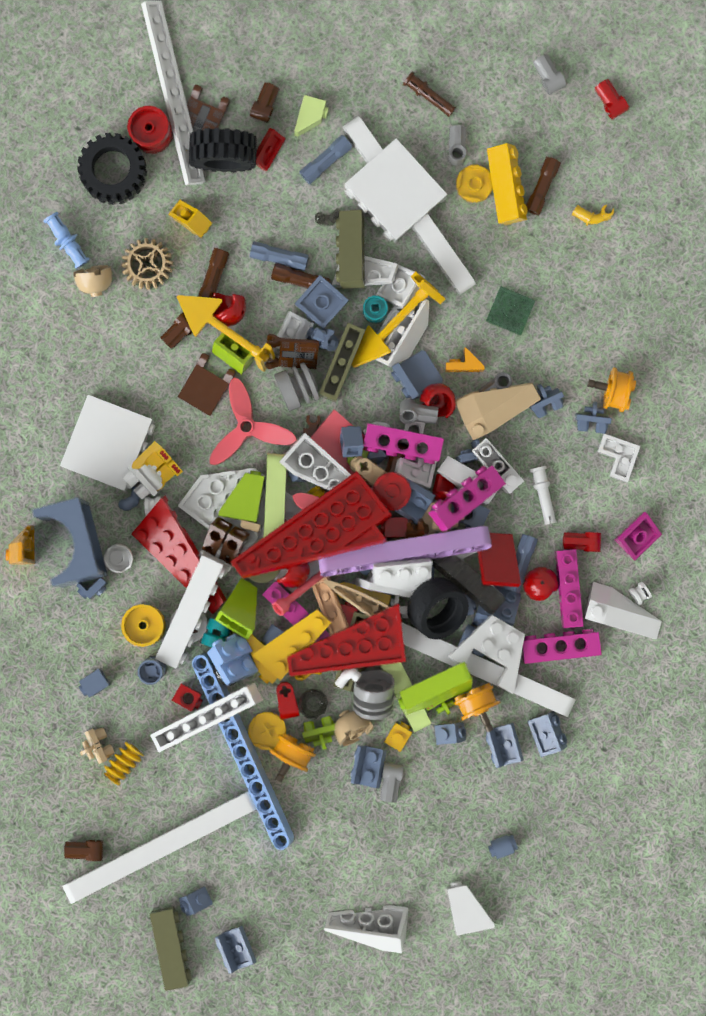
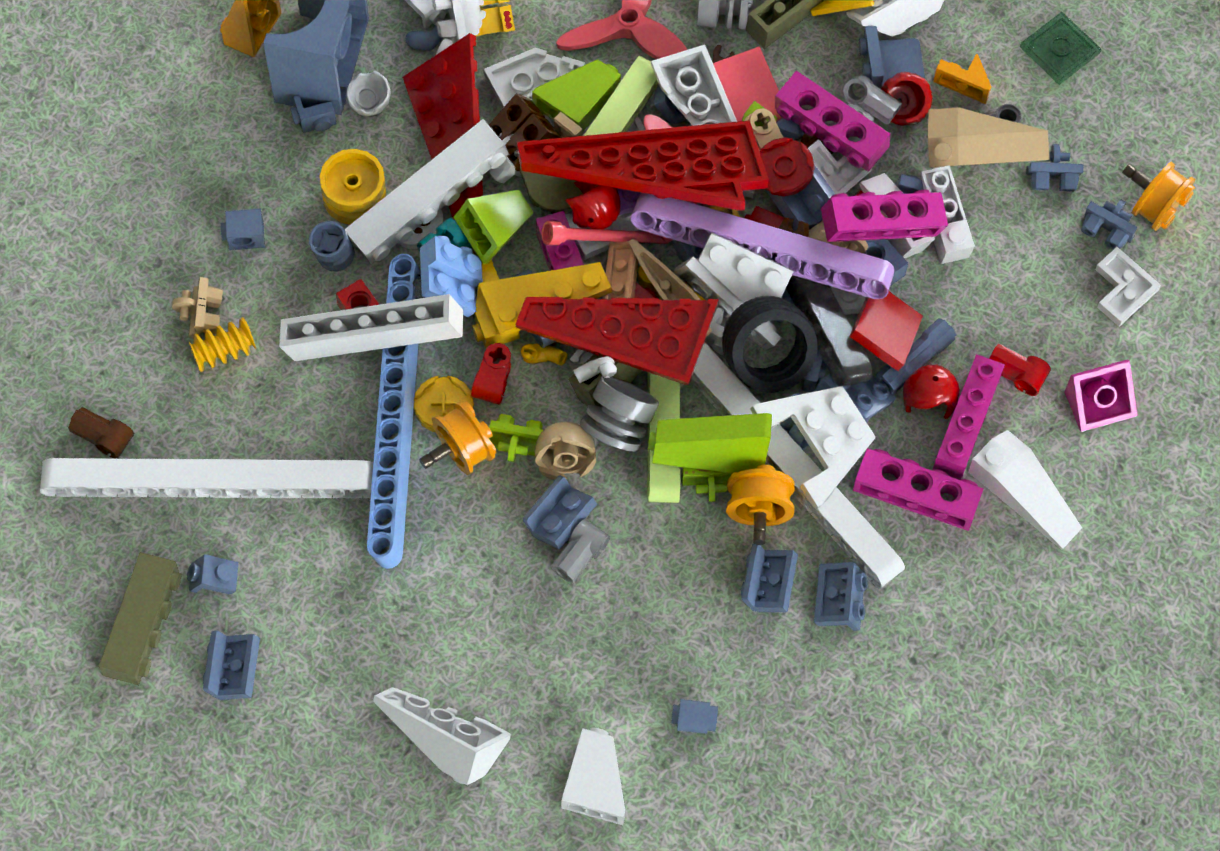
camera: 25 degrees right, 20 degrees down
(313, 703) = (527, 393): clear smoke hair -> none
(351, 441) = (761, 88): sand blue brick -> none
(398, 736) = (625, 496): yellow bracket -> none
(450, 733) = (700, 527): sand blue bracket -> none
(542, 485) = (995, 273): white pin -> none
(638, 594) = (1069, 472): white wheel -> none

